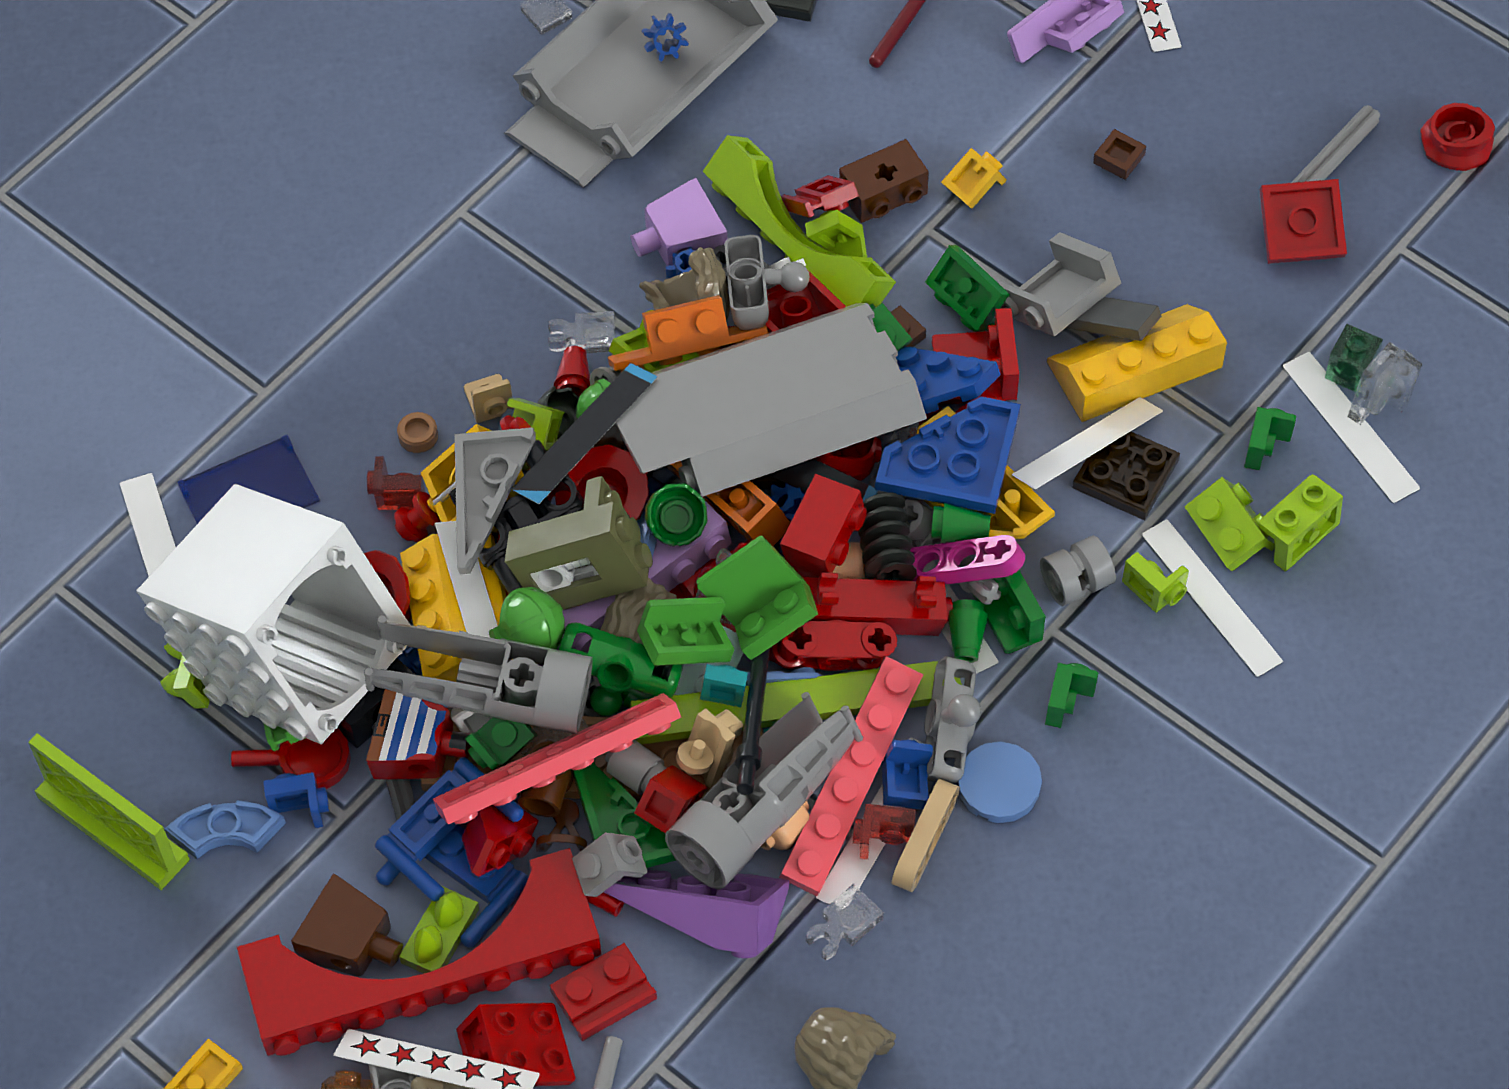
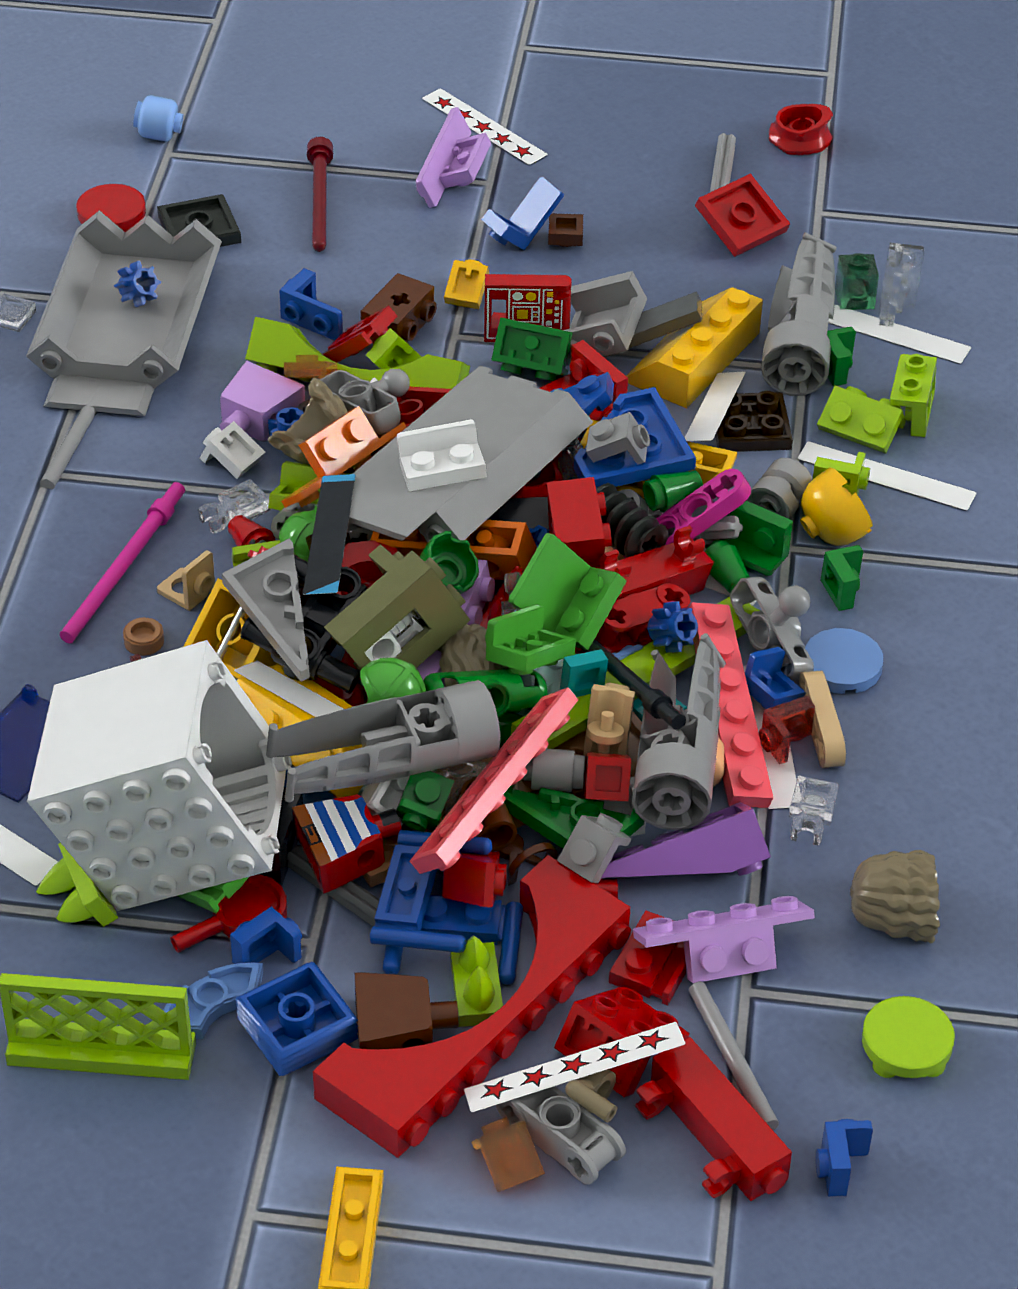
camera: 35 degrees left, 15 degrees down
(247, 874) = (296, 1018): none -> blue brick
(496, 189) = (69, 445): none -> light grey bar
(517, 306) = (158, 514): none -> dark pink bar
(623, 268) = (232, 449): none -> white bracket
(660, 1011) = (727, 941): none -> lavender bracket
(734, 401) = (440, 455): none -> white bracket
(744, 218) = (308, 367): none -> clear orange bracket
(799, 120) = (302, 308): none -> blue bracket
(845, 675) = (672, 627): none -> blue gear
(930, 451) = (616, 436): none -> light grey bracket
(995, 239) = (529, 299): none -> red container
(1076, 132) = (528, 216): none -> bracket
(1109, 618) = (833, 511): none -> yellow cylinder
(1216, 419) = (797, 340): none -> light grey piece

